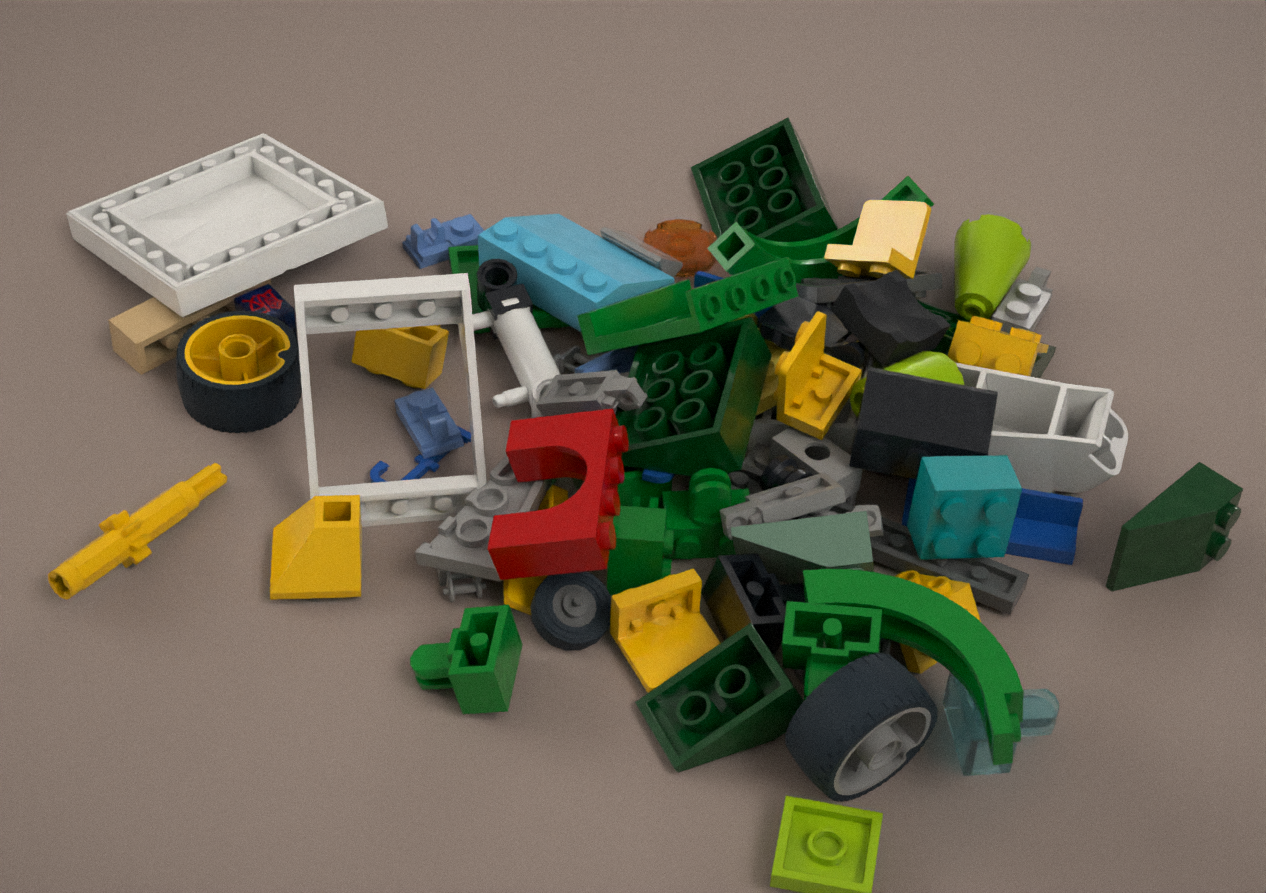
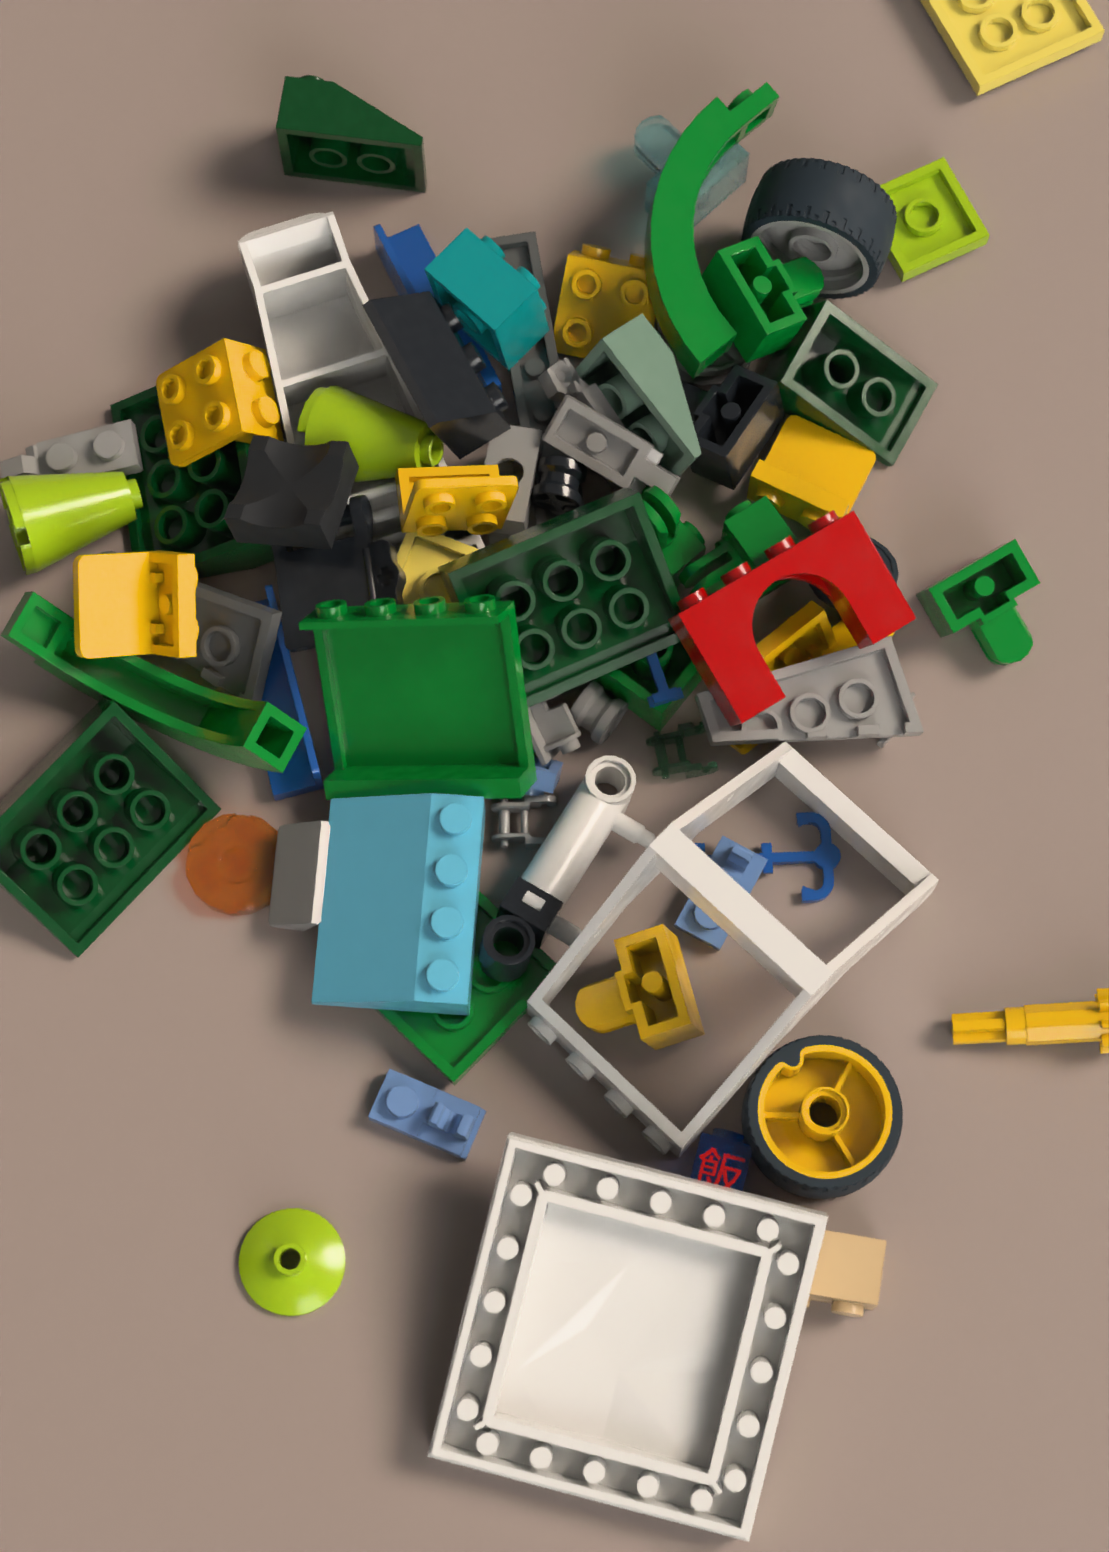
camera: 125 degrees left, 30 degrees up
(318, 550) = (975, 840): yellow slope -> none
(428, 160) = (307, 1285): none -> lime dish
(590, 392) = (620, 708): light grey hinge -> none

